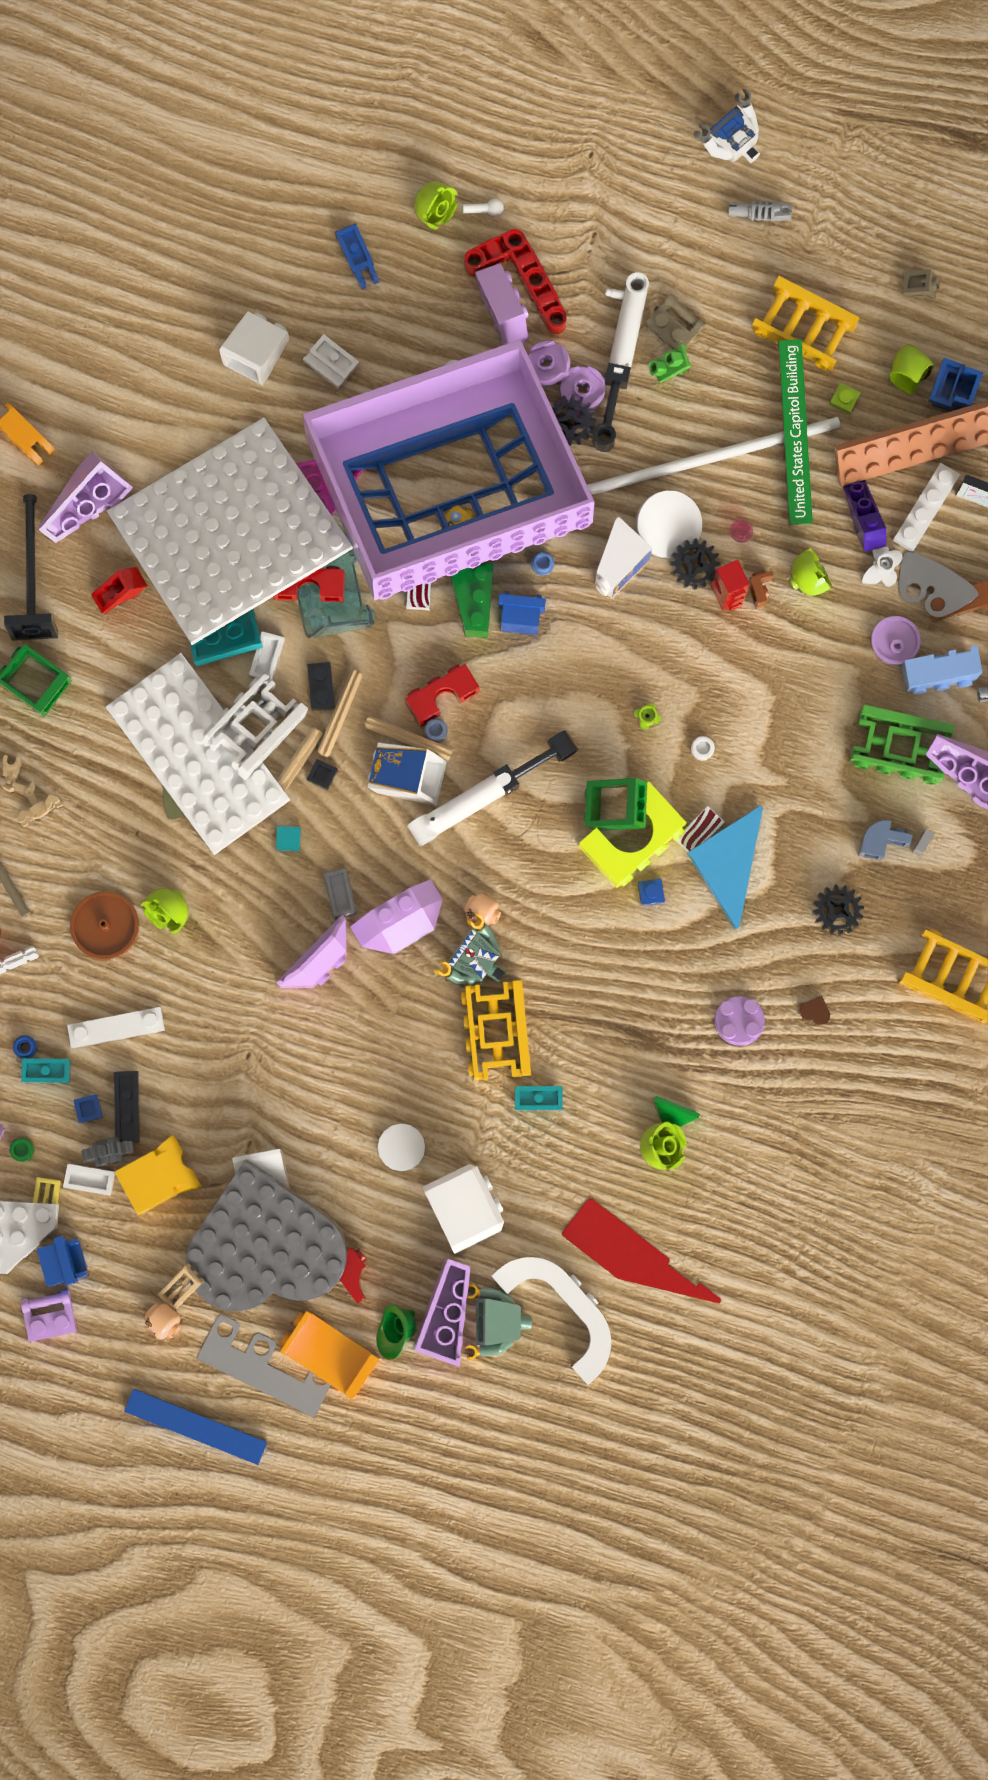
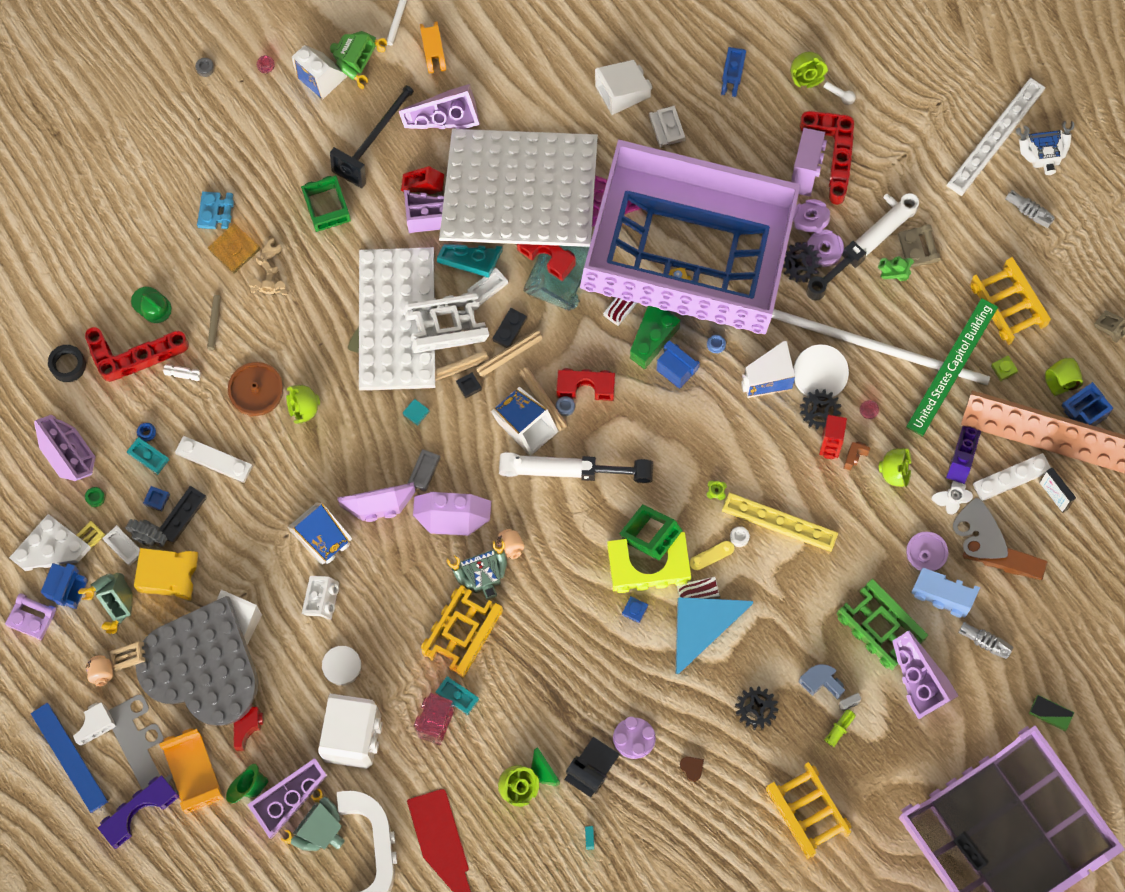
camera: 40 degrees right, 10 degrees down
(125, 1238) = (114, 596): none -> sand green torso
(145, 621) = (423, 212): none -> lavender wedge
(199, 1373) = (96, 723): none -> white arch
(283, 1029) = (320, 533): none -> slope
(298, 1462) = (117, 827): none -> dark purple arch
(330, 1093) = (320, 597): none -> white bracket
(535, 1136) = (434, 718): none -> clear pink brick
(673, 153) = (996, 136): none -> white tile
(688, 785) = (711, 555): none -> light yellow piece
(719, 1080) = (591, 768): none -> black piece
(731, 706) = (780, 522): none -> light yellow tile
(766, 1148) = (589, 837): none -> teal tile
(930, 874) = (840, 728): none -> lime axle

